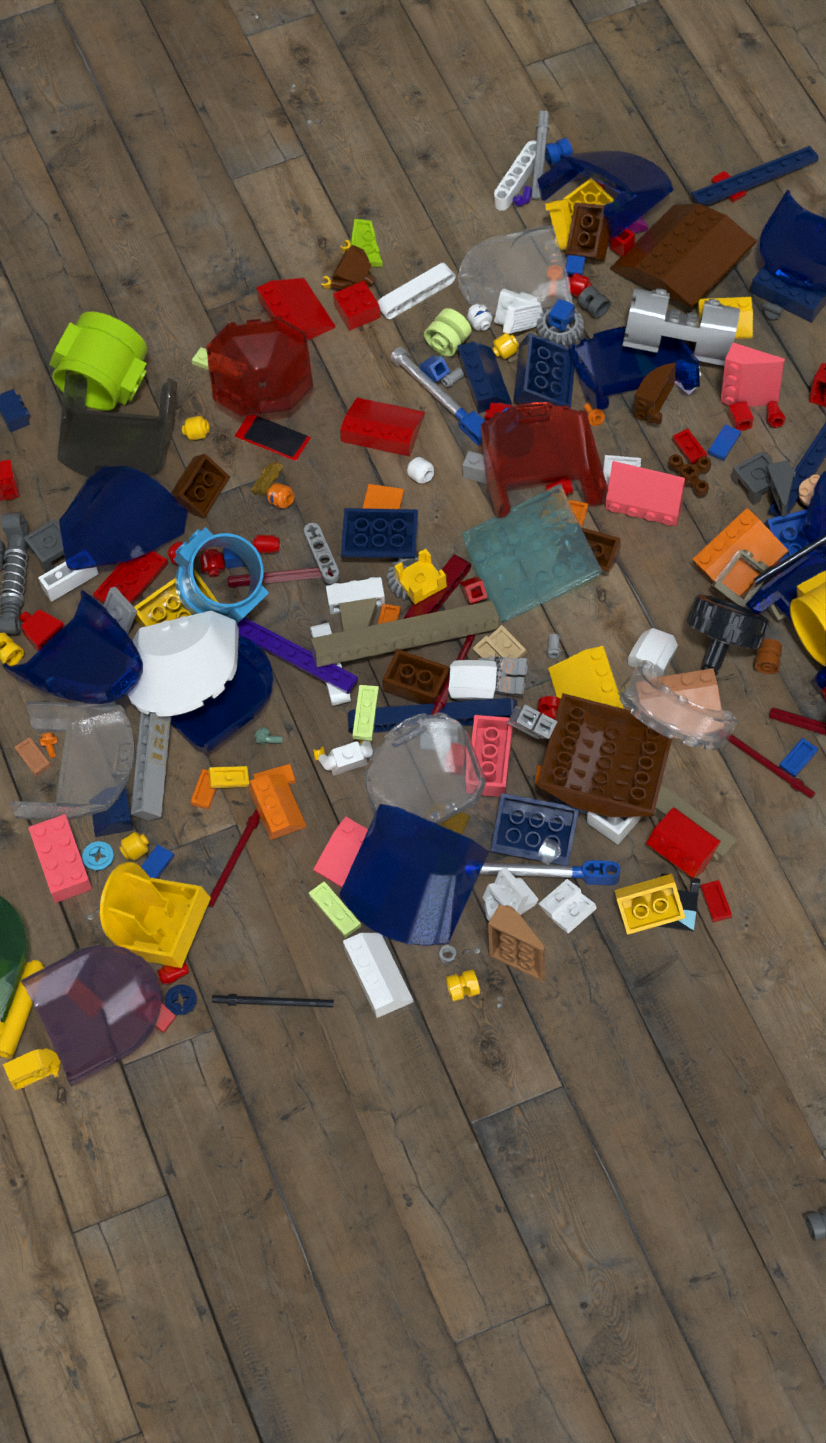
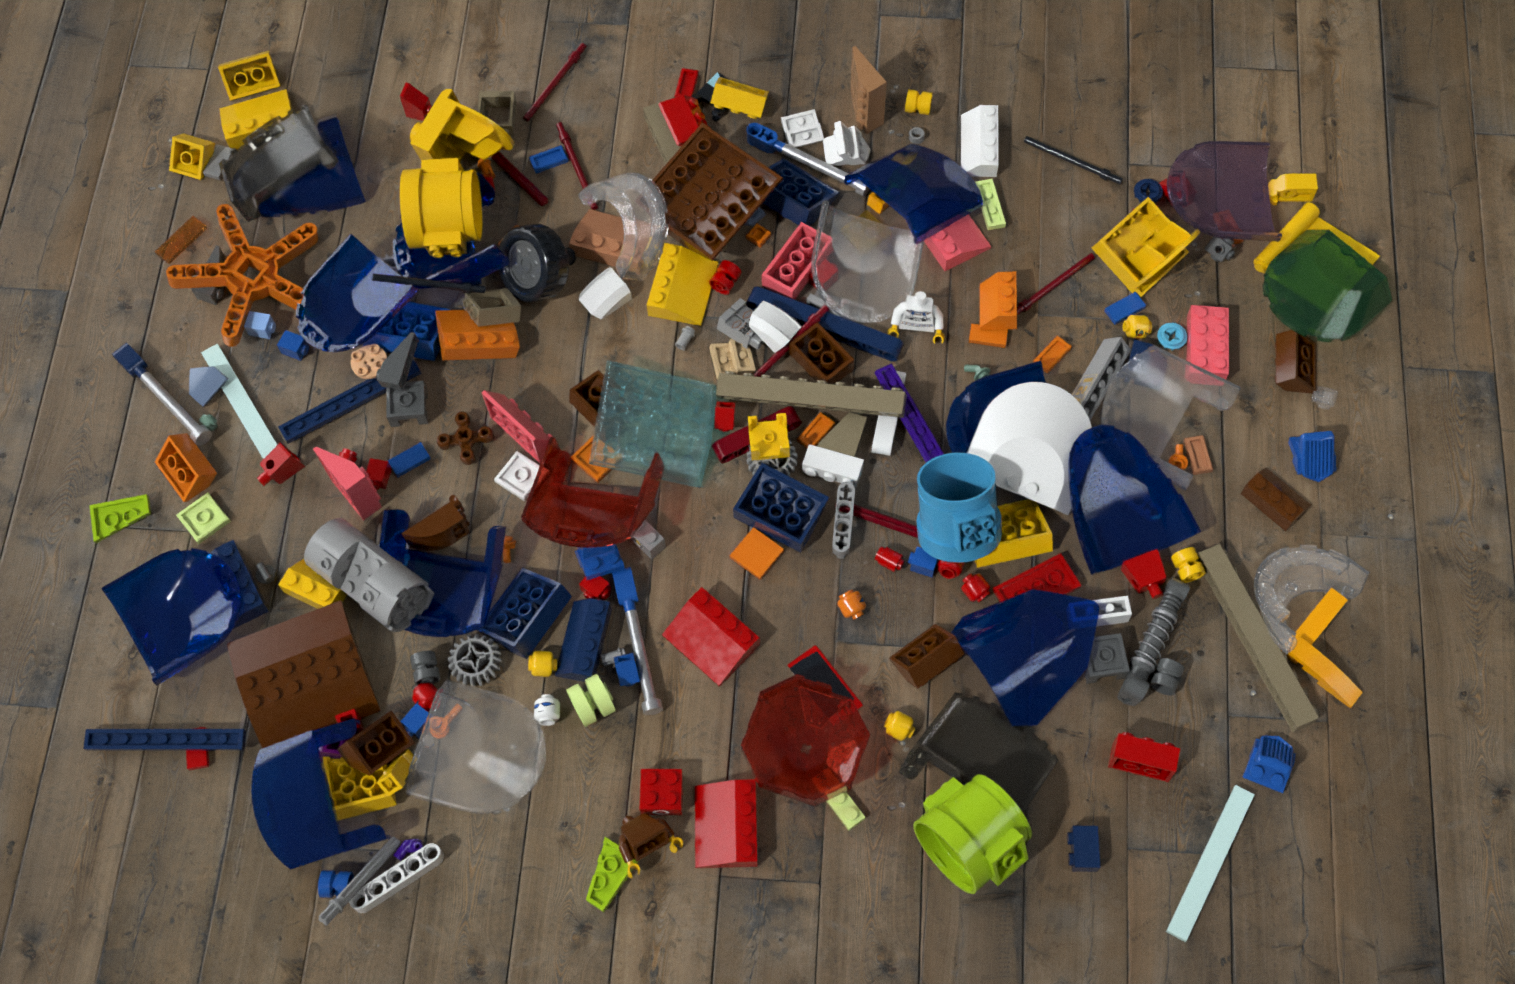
camera: 155 degrees left, 5 degrees up
(120, 608) = (1066, 546): light grey tile -> none
(228, 777) = (1029, 348): yellow plate -> none
(269, 474) = (855, 631): clear yellow plate -> none
(365, 712) = (883, 338): yellowish green plate -> none
(416, 290) = (590, 781): white beam -> none
(420, 470) = (703, 565): white head -> none
(517, 311) = (509, 685): white piece -> none
(527, 721) = (753, 245): light grey hips -> none
(548, 851) = (795, 163): clear plate -> none
(561, 314) = (469, 654): blue brick -> none
(566, 484) = (585, 481): red cone -> none
(689, 446) = (443, 468): red plate -> none

